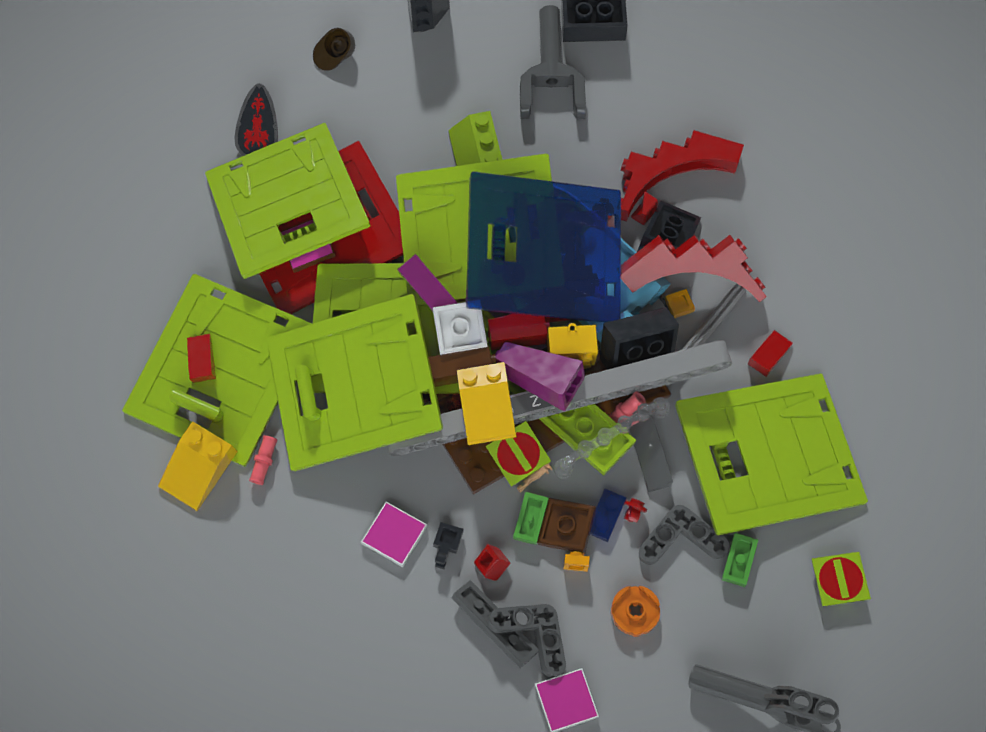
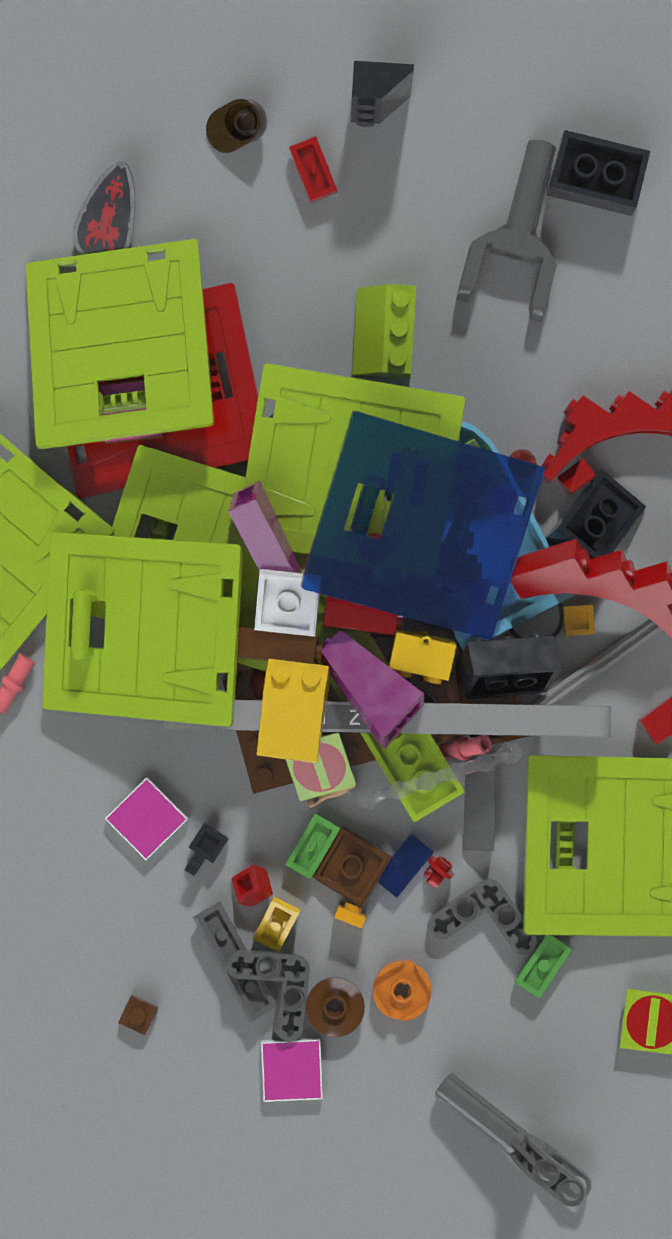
camera: 10 degrees right, 20 degrees up
(395, 64) = (313, 169): none -> red plate
(428, 691) = (138, 1014): none -> reddish brown plate
(520, 582) = (276, 924): none -> yellow slope
(589, 625) = (337, 1022): none -> reddish brown dish

